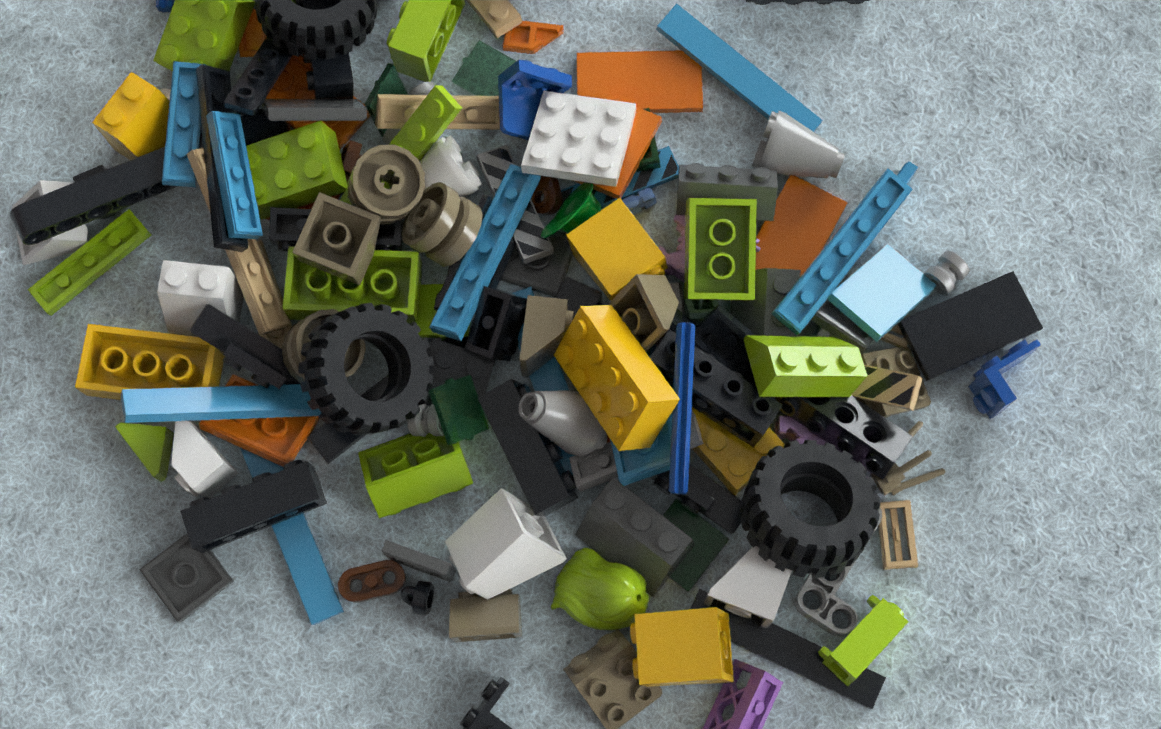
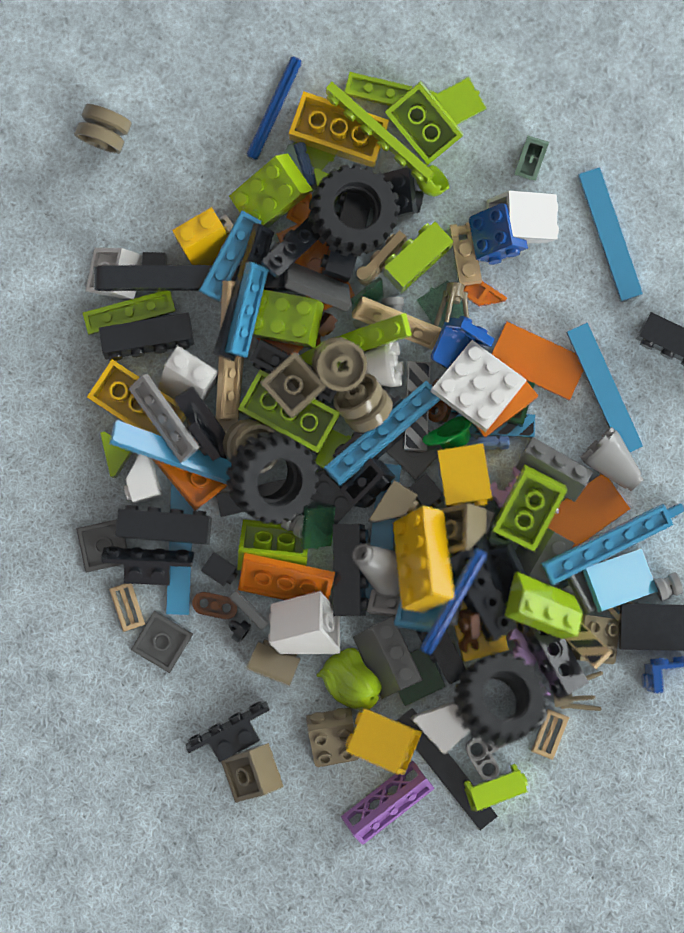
camera: 20 degrees right, 10 degrees up
(121, 279) = (146, 336): none -> black brick
(187, 361) = (164, 418): none -> light grey plate
(255, 571) = (147, 565): none -> black bracket
(273, 660) = (136, 605): none -> tan tile
(323, 665) = (162, 641): none -> dark grey tile
(356, 530) = (220, 569): none -> black brick
(379, 52) = (375, 267): none -> tan plate
(442, 500) = (282, 578): none -> orange tile
(495, 51) = (453, 294): none -> dark tan plant
(722, 437) = (470, 627): none -> reddish brown plate

